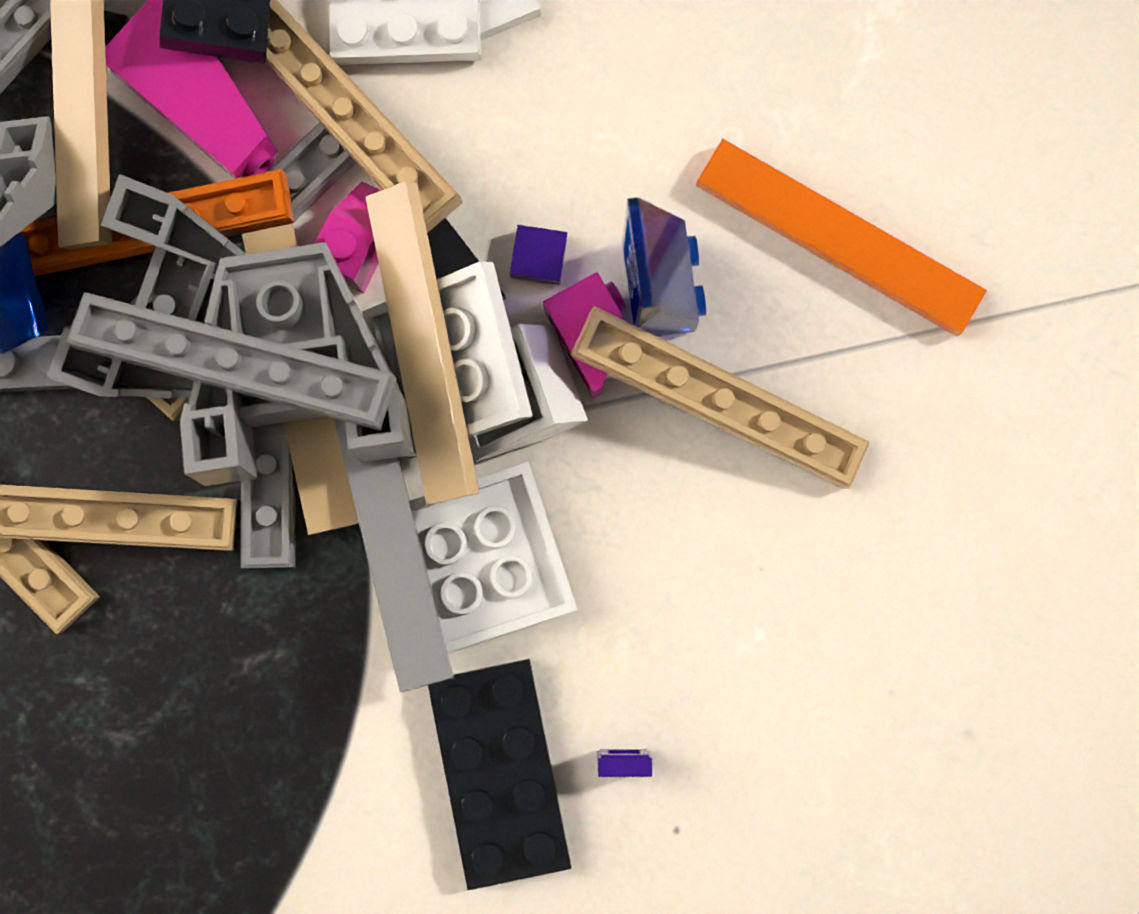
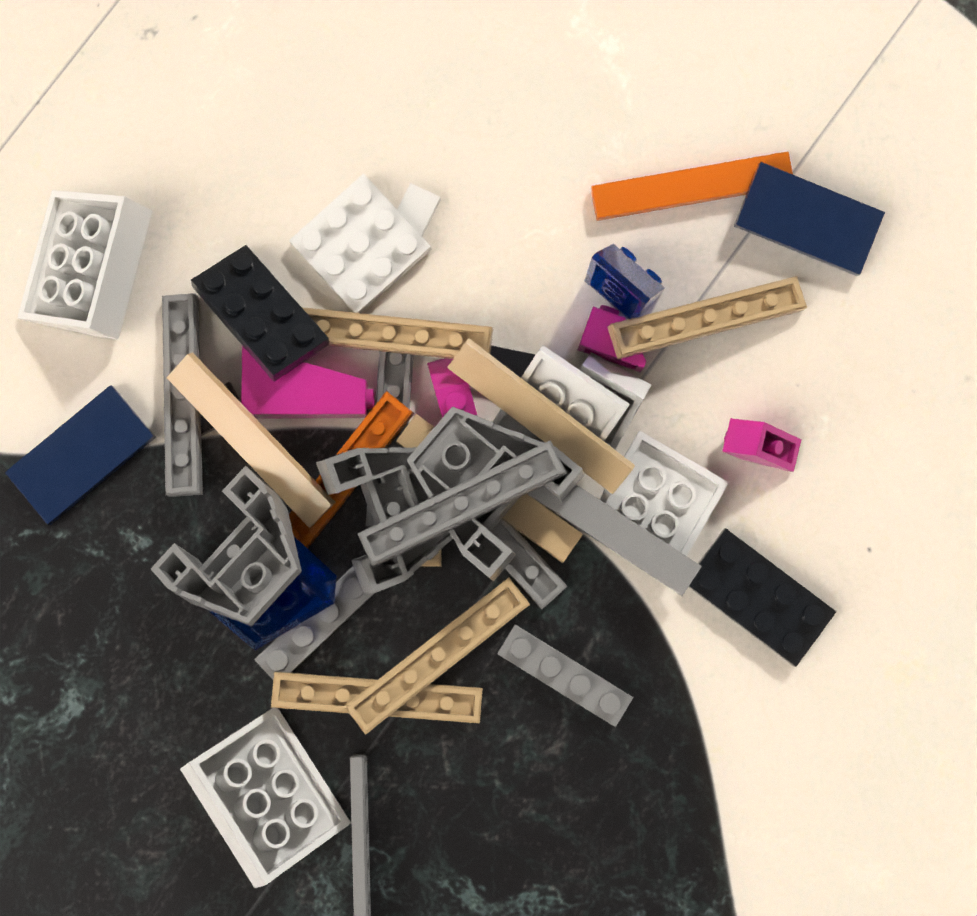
camera: 45 degrees left, 0 degrees up
(200, 665) = (565, 675): none -> light grey plate
(538, 254) = (550, 323): dark purple tile -> none
(624, 763) = (817, 537): dark purple tile -> none
(655, 600) = (761, 444): none -> dark pink slope
(942, 388) = (809, 219): none -> dark blue tile

